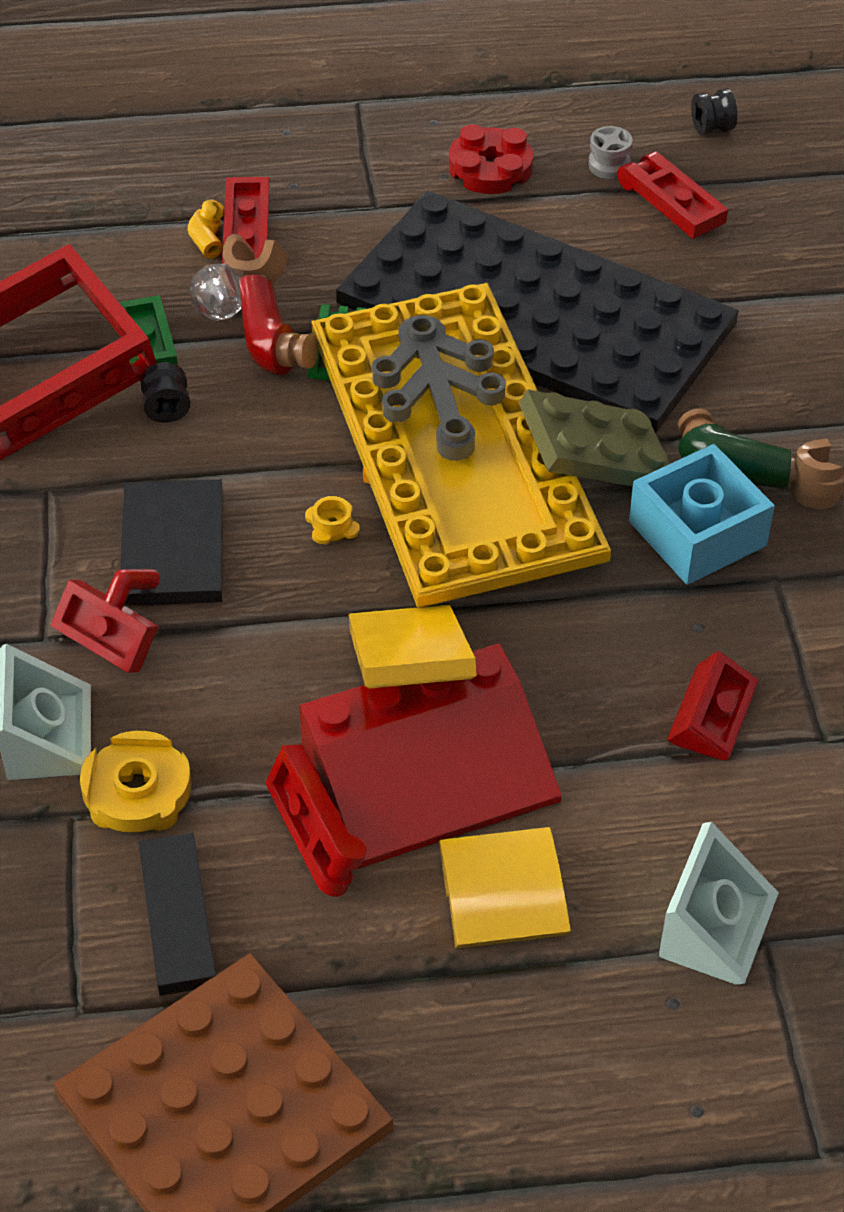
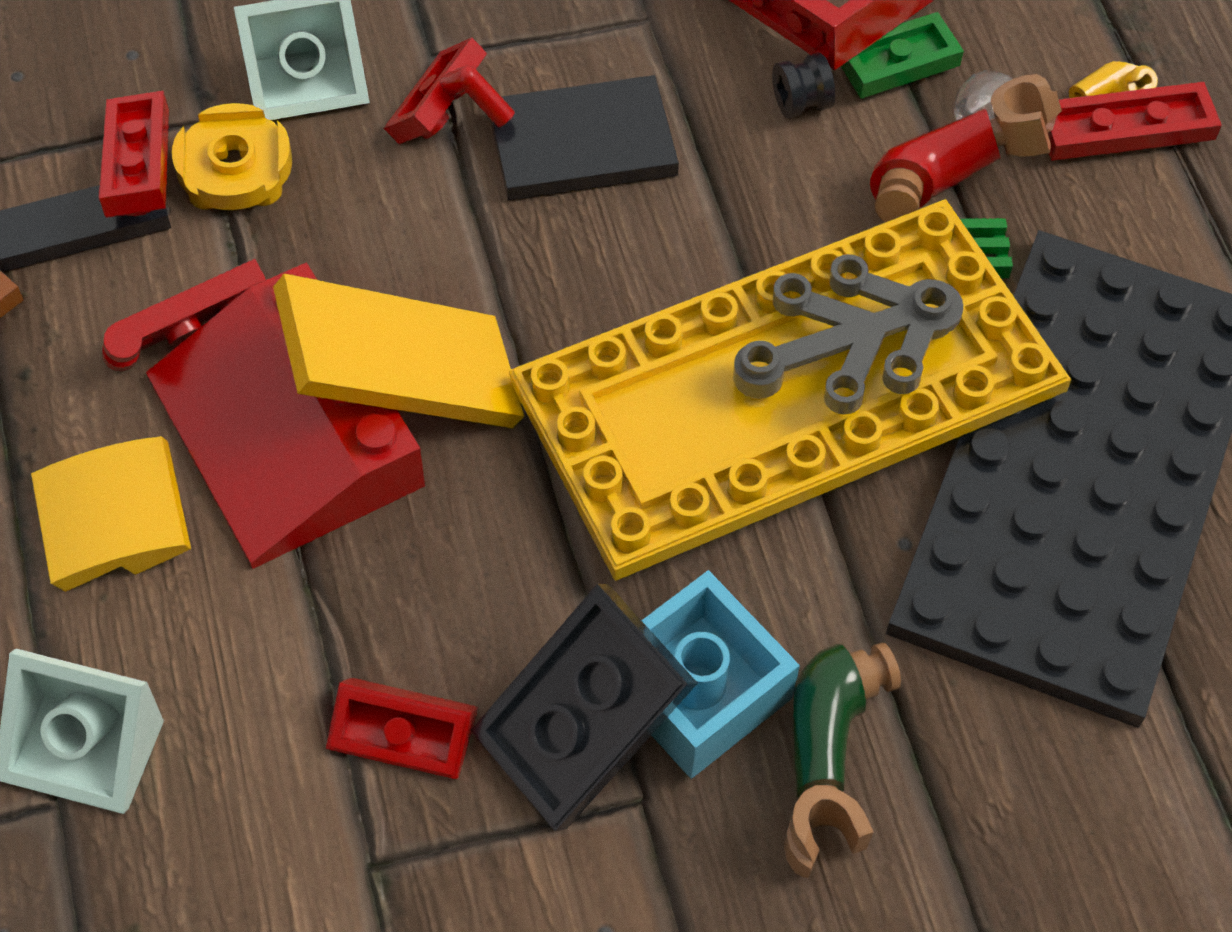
camera: 80 degrees right, 10 degrees up
(127, 841) = (134, 155): none -> red plate
(332, 520) = (638, 267): yellow plate -> none
(592, 438) = (805, 539): olive plate -> none
(729, 572) = (583, 706): none -> black tile

